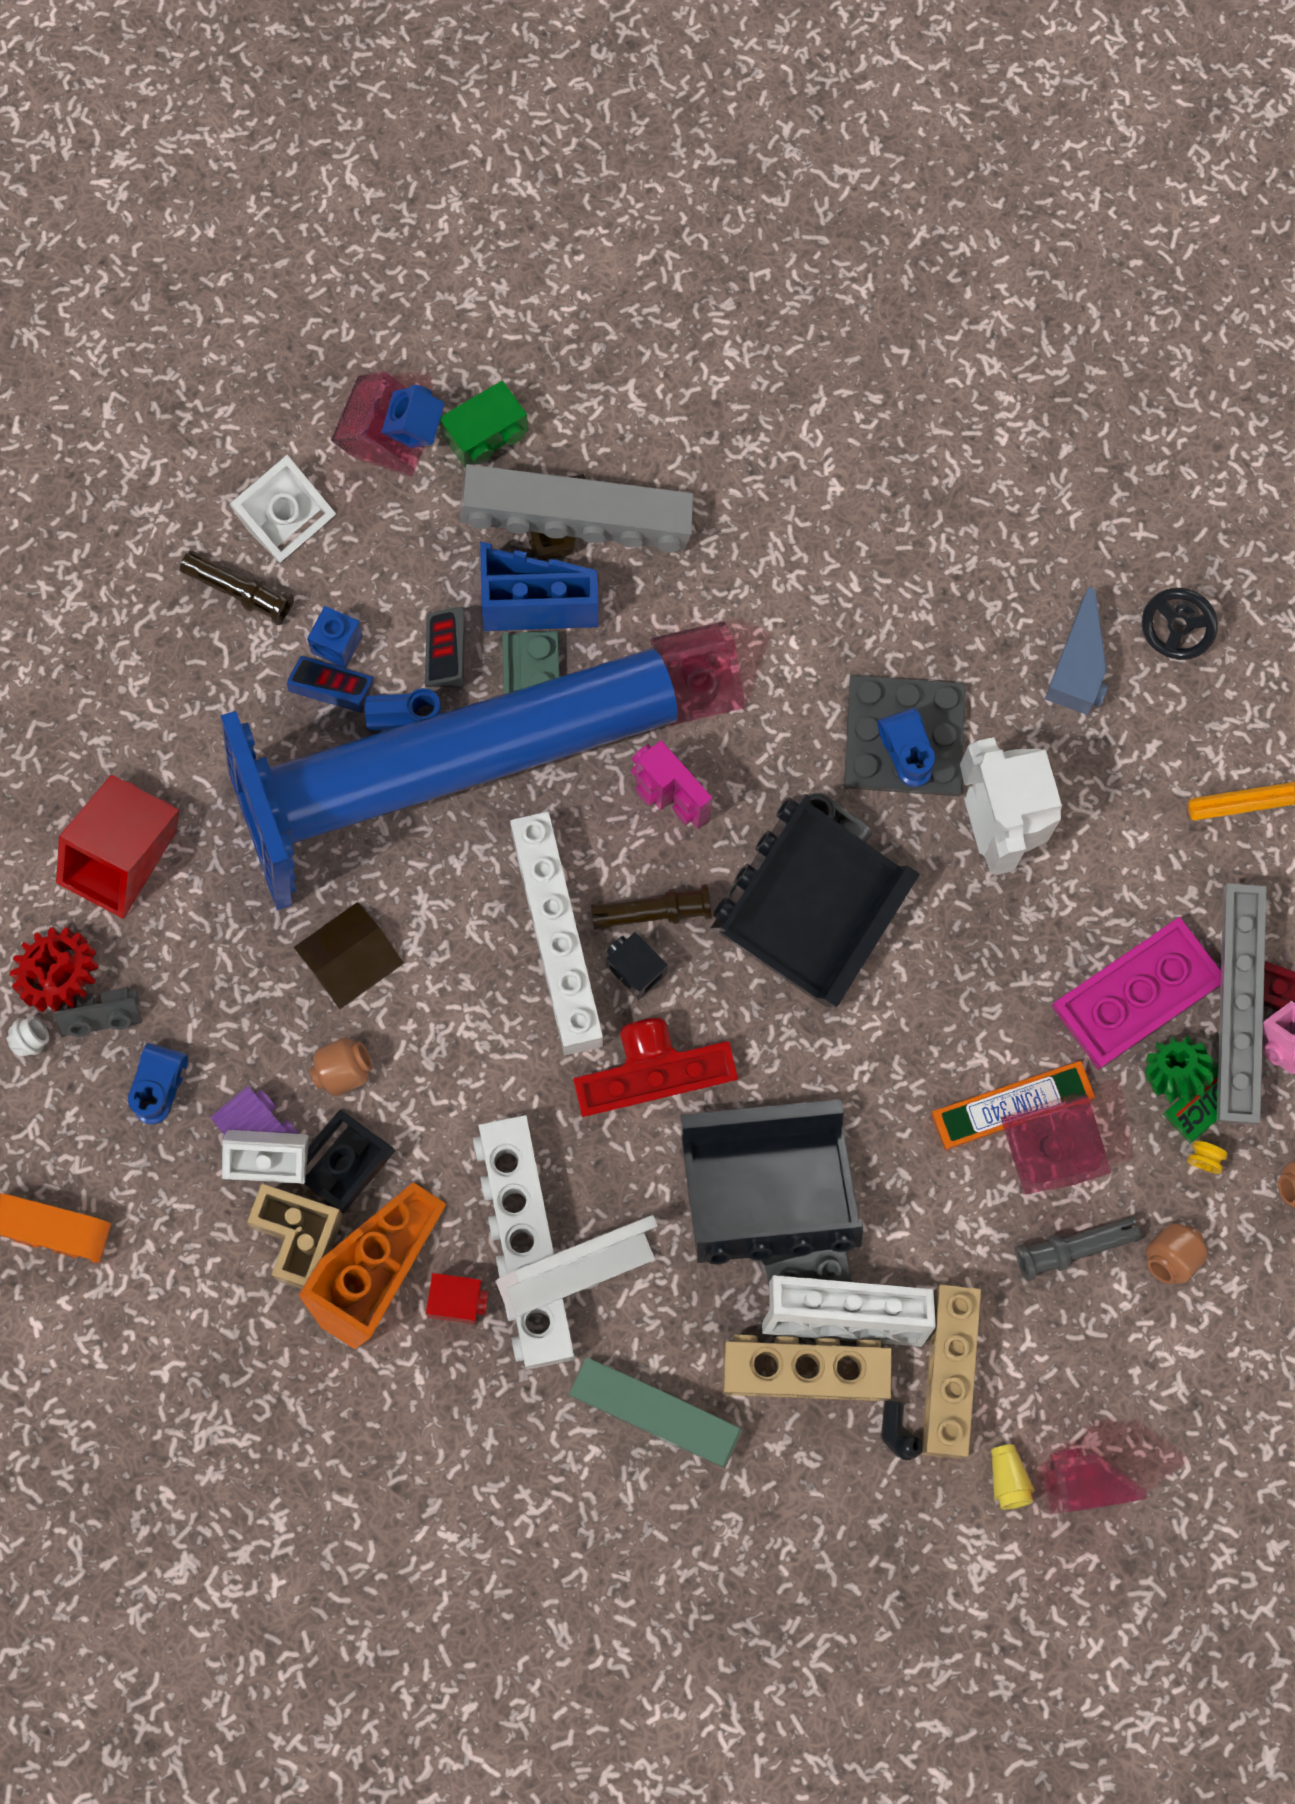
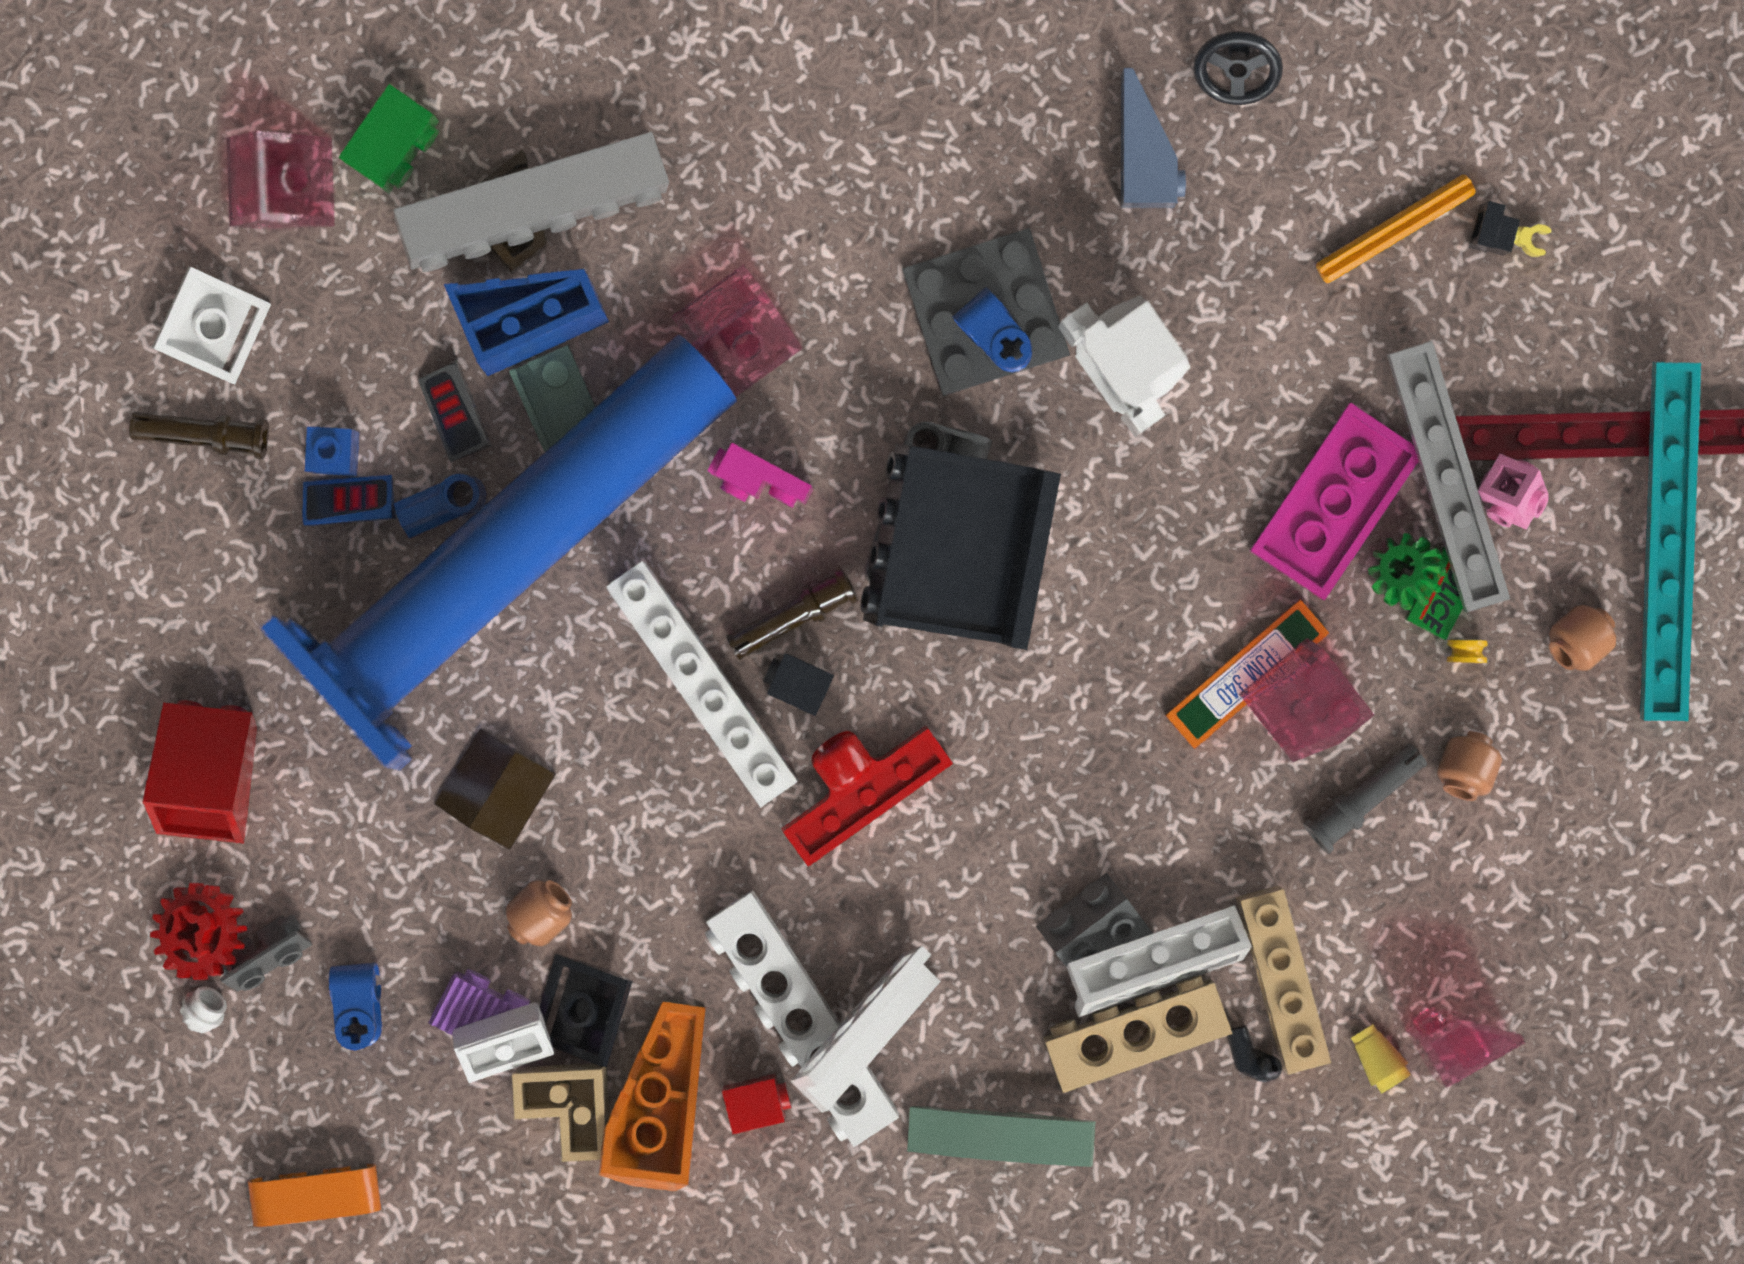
camera: 15 degrees left, 15 degrees up
(413, 416) = (309, 167): blue brick -> none
(769, 1182) = (1028, 863): black panel -> none

